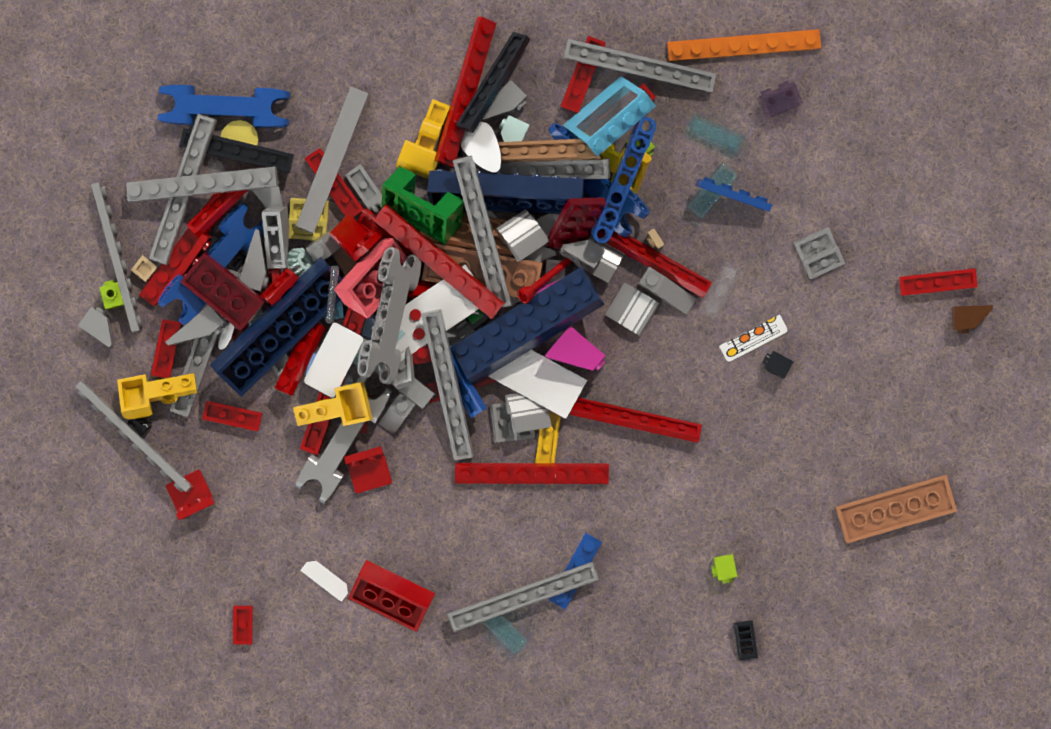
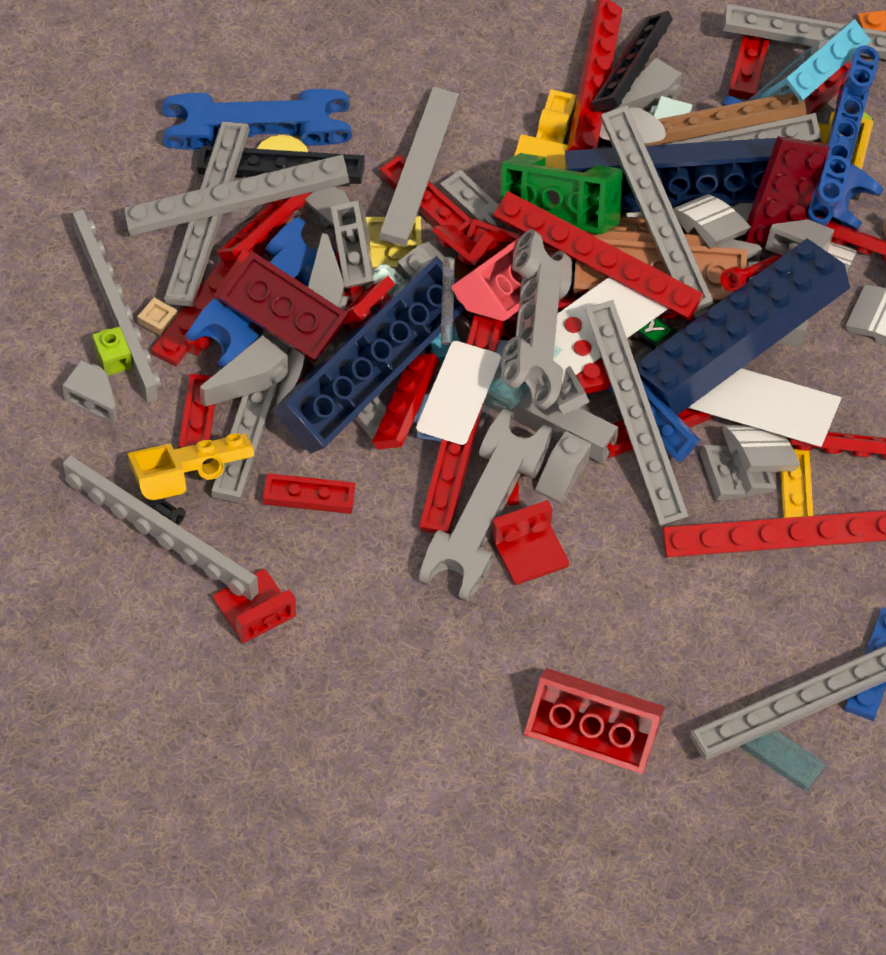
camera: 10 degrees left, 30 degrees down
(243, 624) = (358, 784): red plate -> none
(325, 579) = (484, 710): white piece -> none
(350, 405) = (494, 436): yellow plate -> none
(576, 352) = (820, 360): dark pink slope -> none

